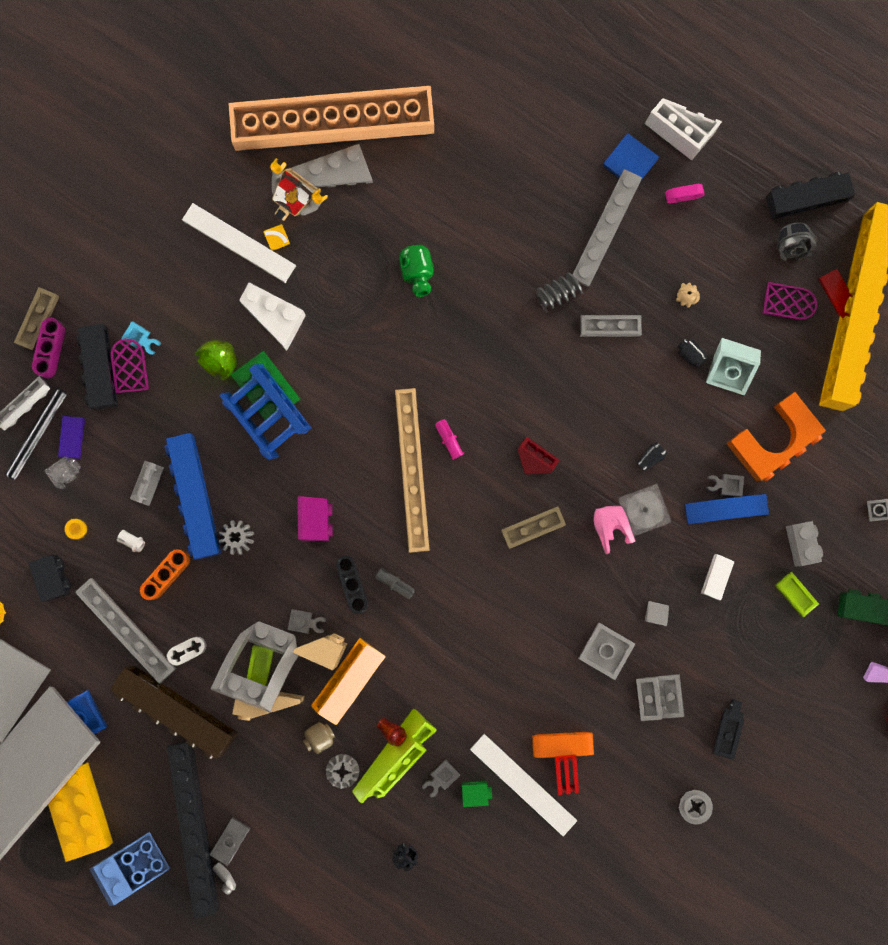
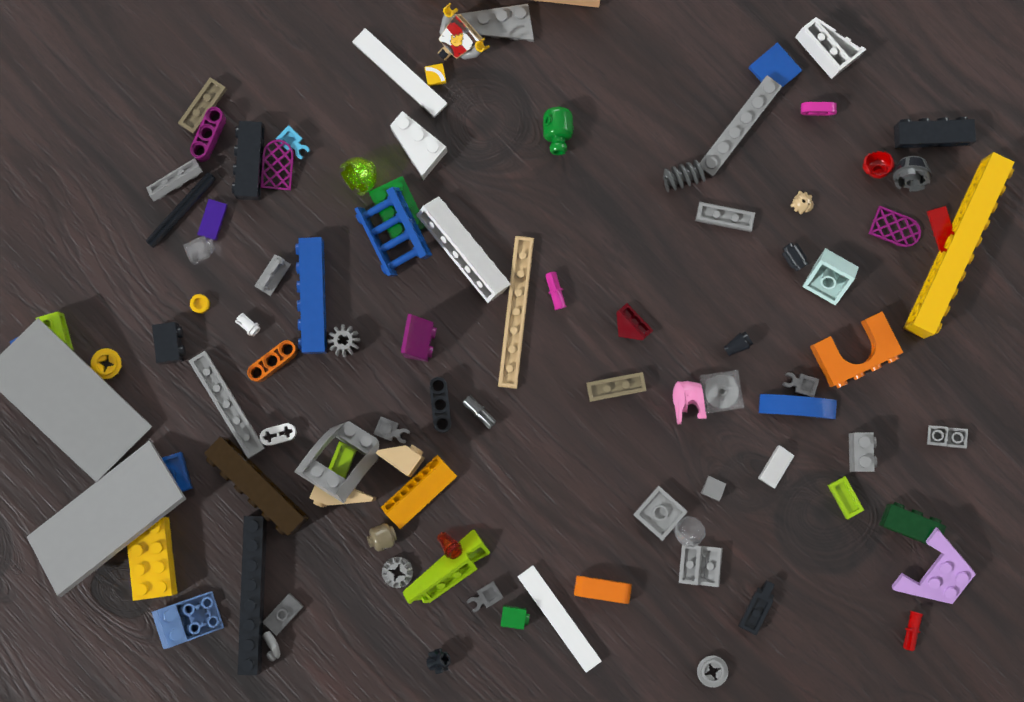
camera: 15 degrees right, 0 degrees up
(343, 415) = (463, 249): none -> white brick
(568, 788) = (600, 630): red tile -> none
(642, 664) = (690, 531): none -> clear hair
(759, 239) = (878, 164): none -> red hair

